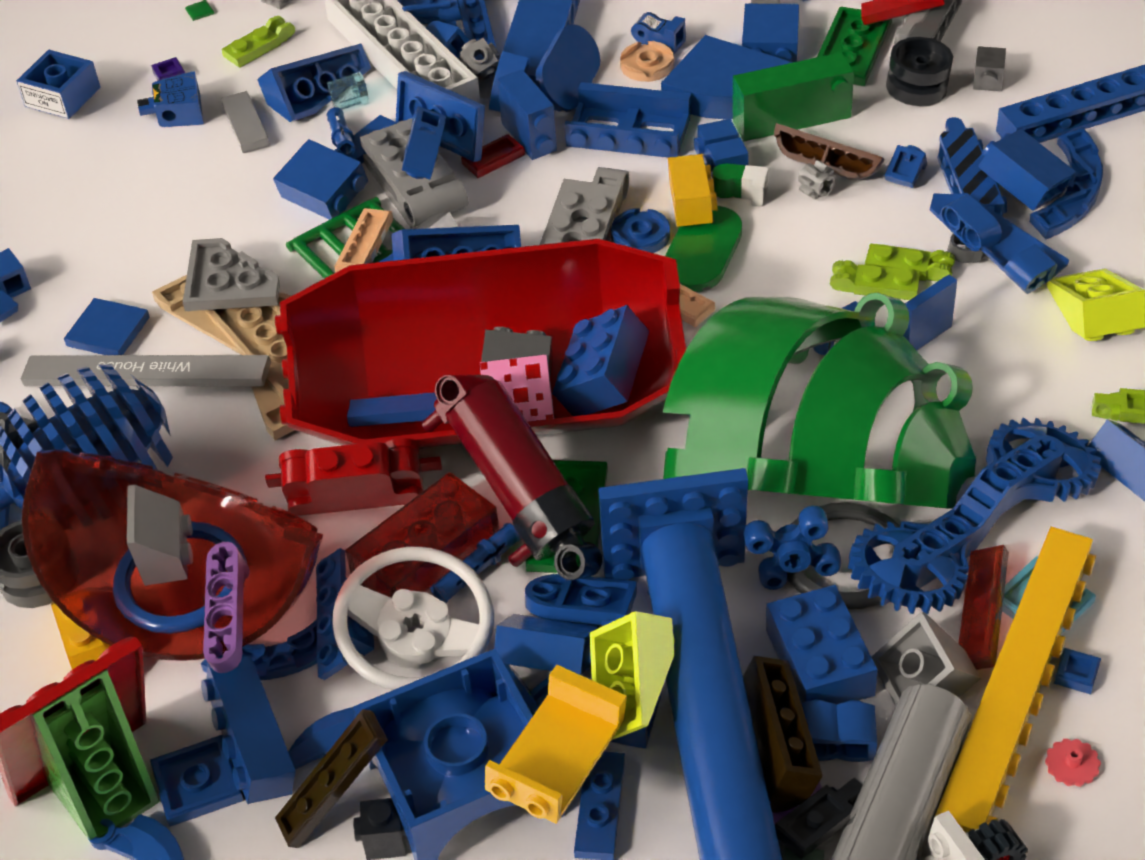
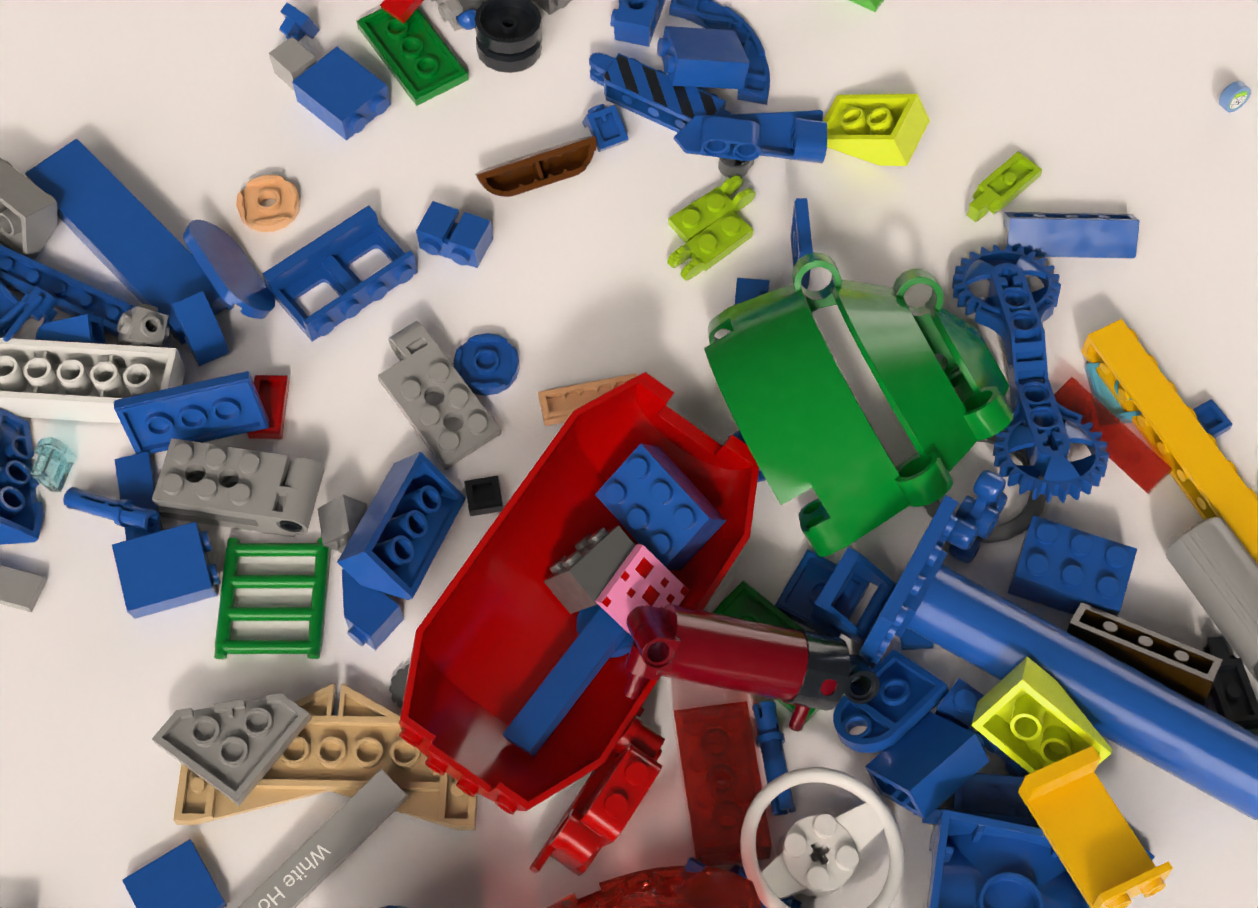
camera: 55 degrees left, 15 degrees up
(365, 238) = (297, 590): light nougat plate -> none
(423, 143) = (243, 449): blue slope -> none
(527, 114) = (262, 343): blue brick -> none
(652, 28) = (239, 168): blue leg -> none
(691, 190) = (488, 293): yellow brick -> none
(706, 249) = (554, 334): green tile -> none
(709, 75) = (370, 162): blue brick -> none
(741, 182) = (508, 249): leg -> none
(792, 95) = (451, 138): green brick -> none
(816, 179) = (561, 198): light grey gear -> none
(842, 730) = (1158, 607): blue brick -> none
(924, 656) = (1141, 515): light grey slope -> none

